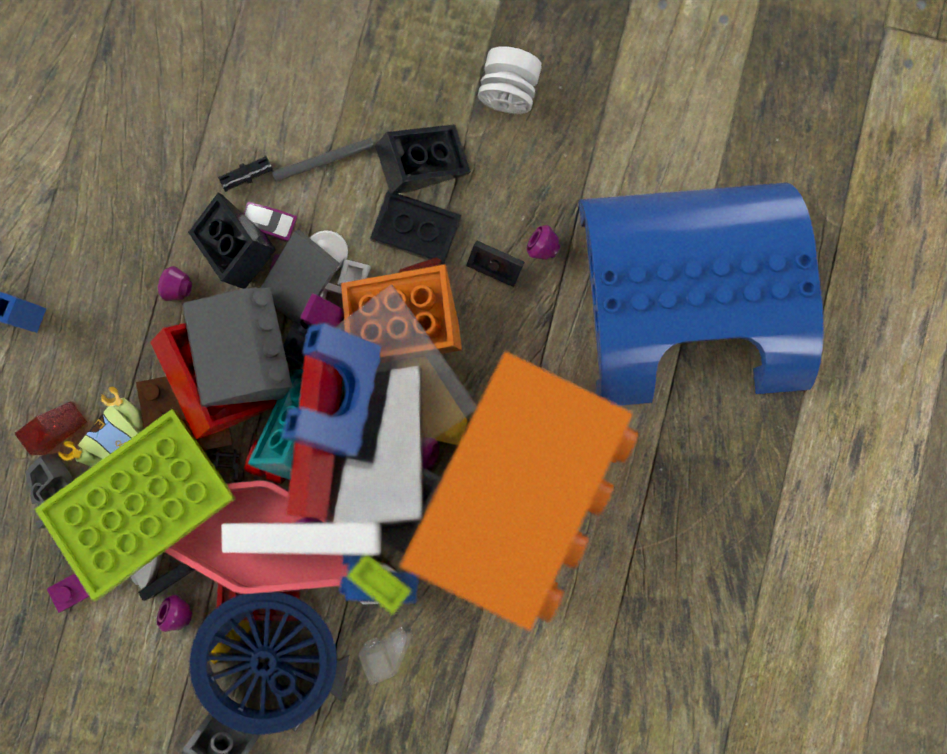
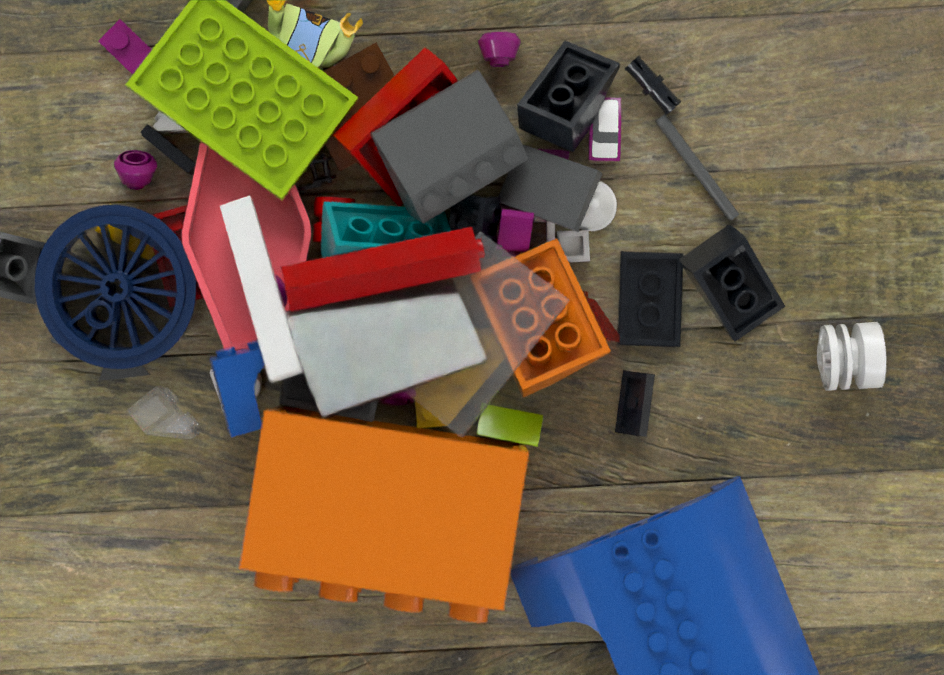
camera: 75 degrees right, 5 degrees up
(357, 363) = (468, 291): blue arch -> none
(379, 583) = (239, 391): lime tile -> none
(482, 369) = (510, 425): none -> lime slope
(543, 243) = (674, 451): magenta cone -> none

